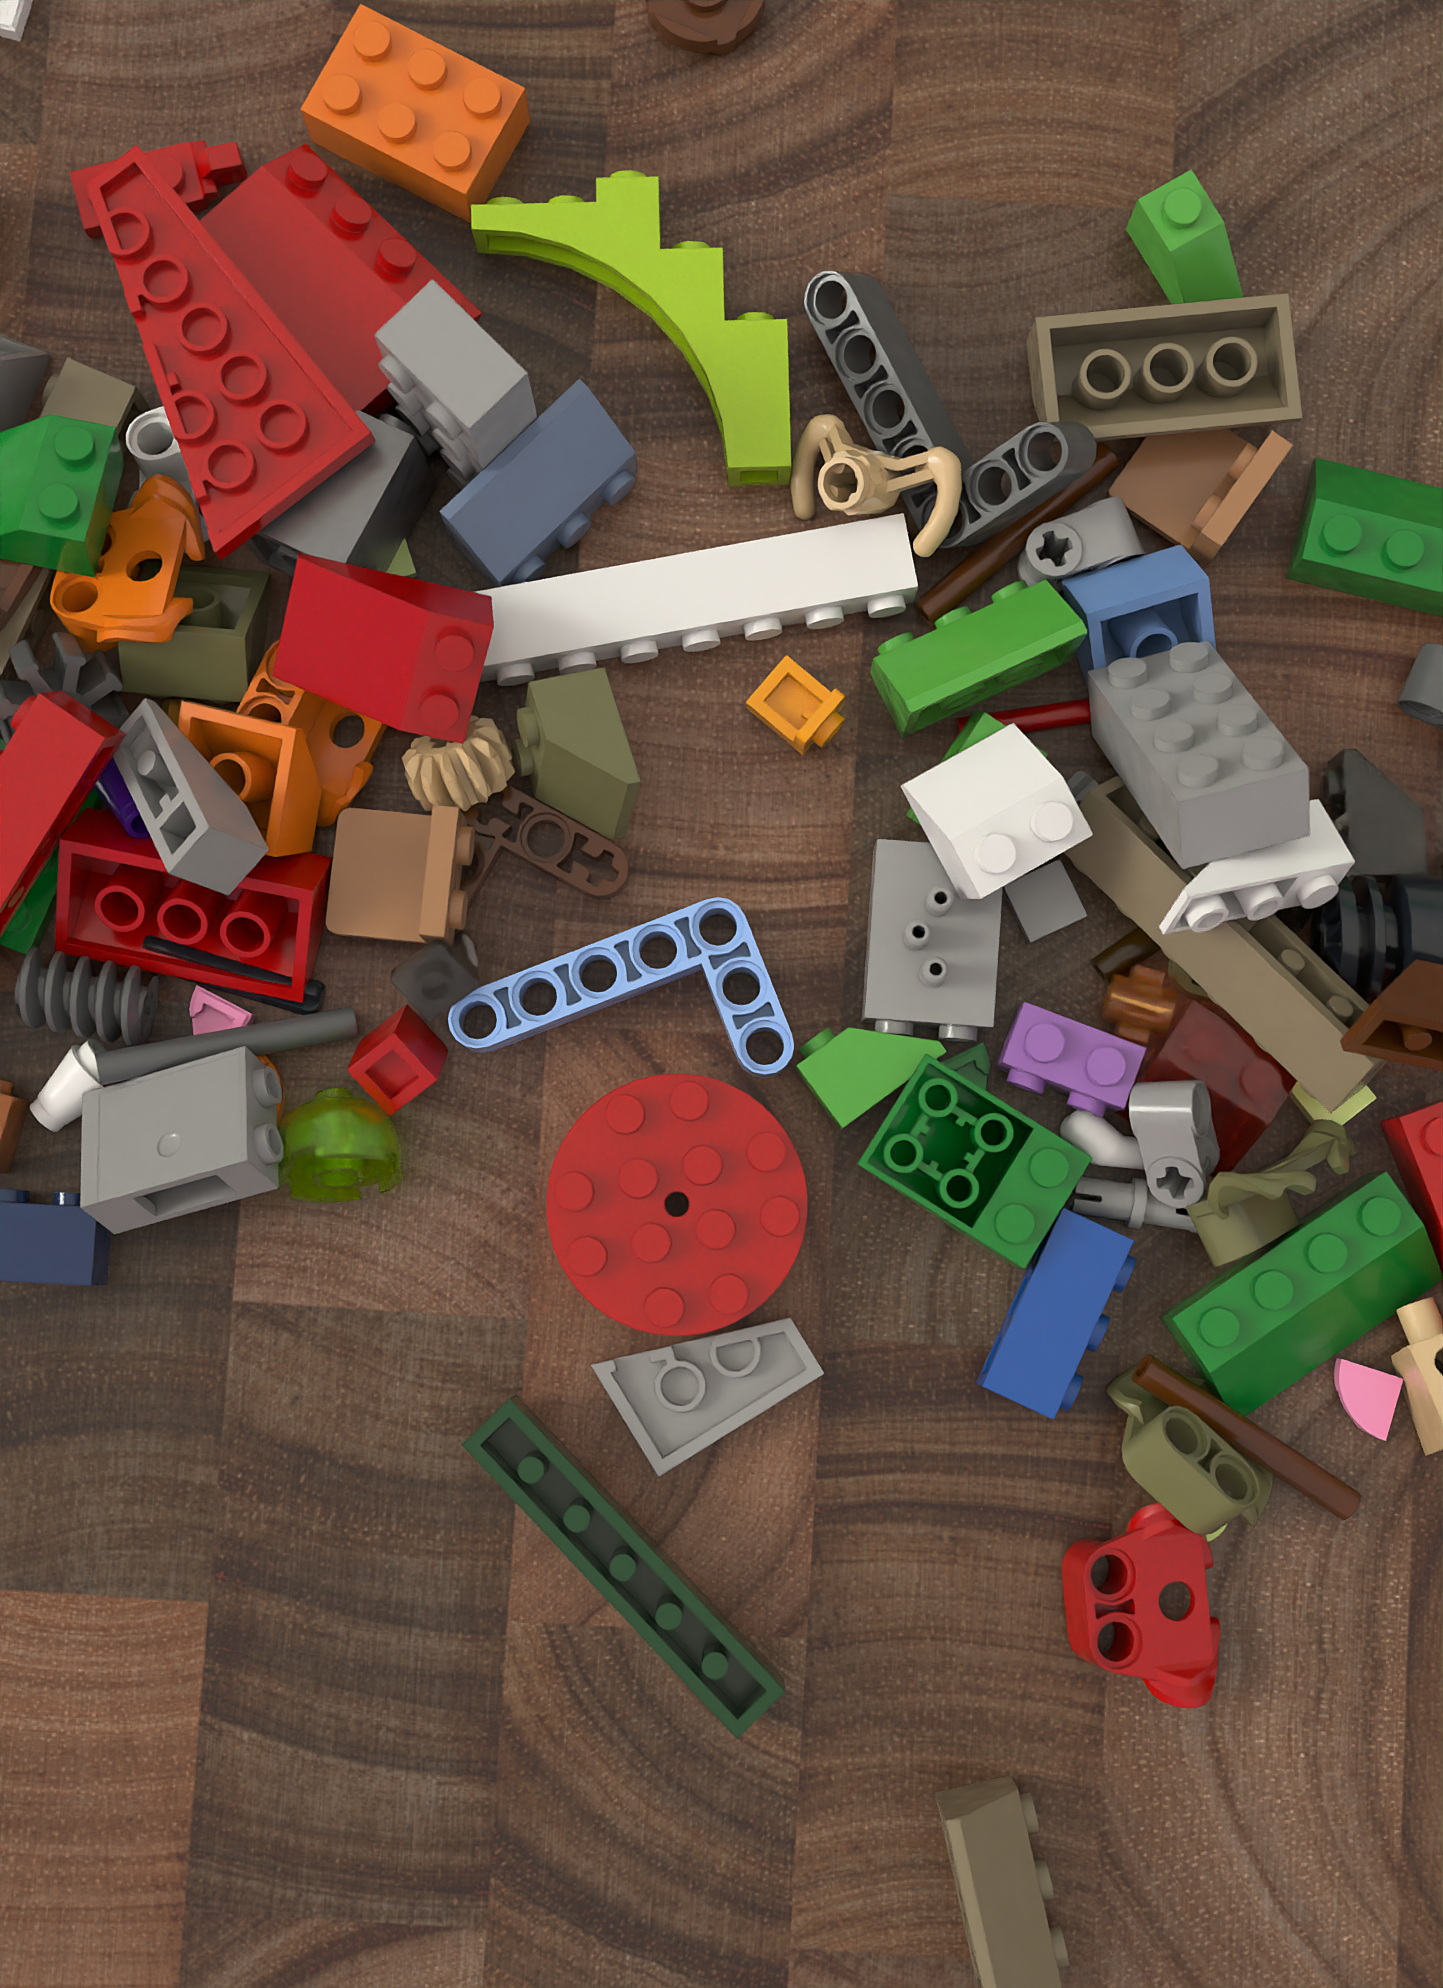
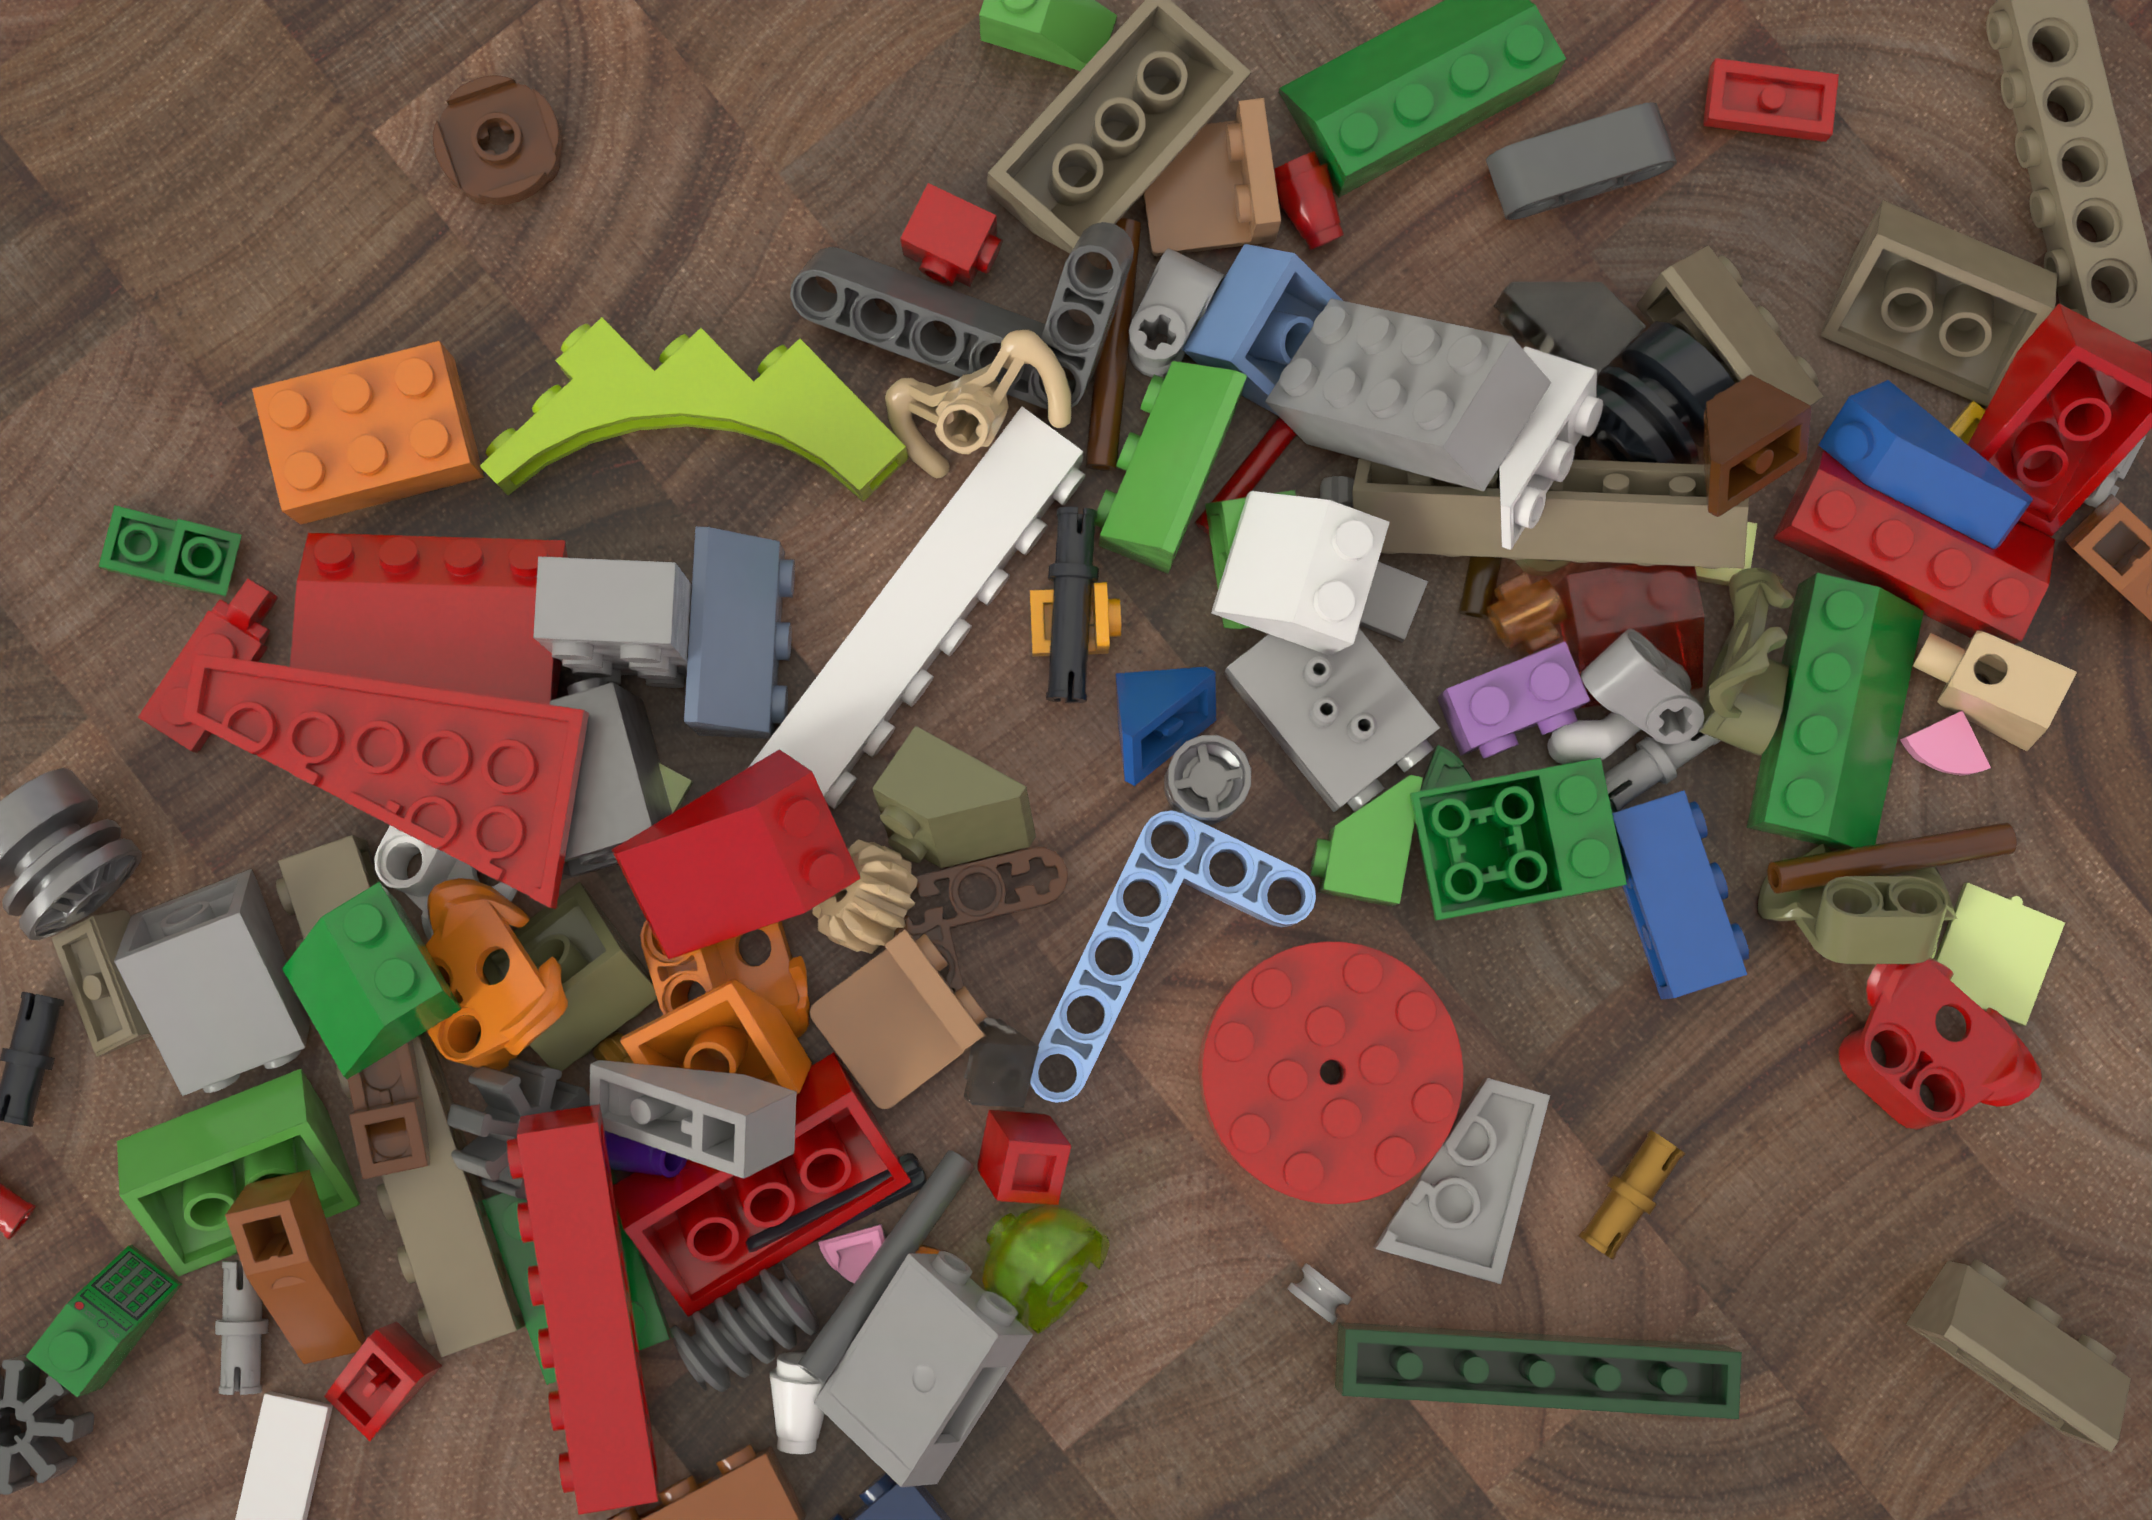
camera: 50 degrees left, 0 degrees up
(201, 76) = (170, 551): none -> green slope
(520, 1359) = (1319, 1293): none -> light grey bush
(786, 908) = (1207, 779): none -> flat silver wheel
(796, 832) = (1160, 714): none -> blue slope
(817, 1503) = (1631, 1194): none -> pearl gold pin
(823, 673) = (1073, 581): none -> black pin
(967, 348) = (950, 238): none -> red brick
(1260, 555) = (1309, 199): none -> red cone
(1263, 1583) = (1999, 951): none -> yellowish green piece

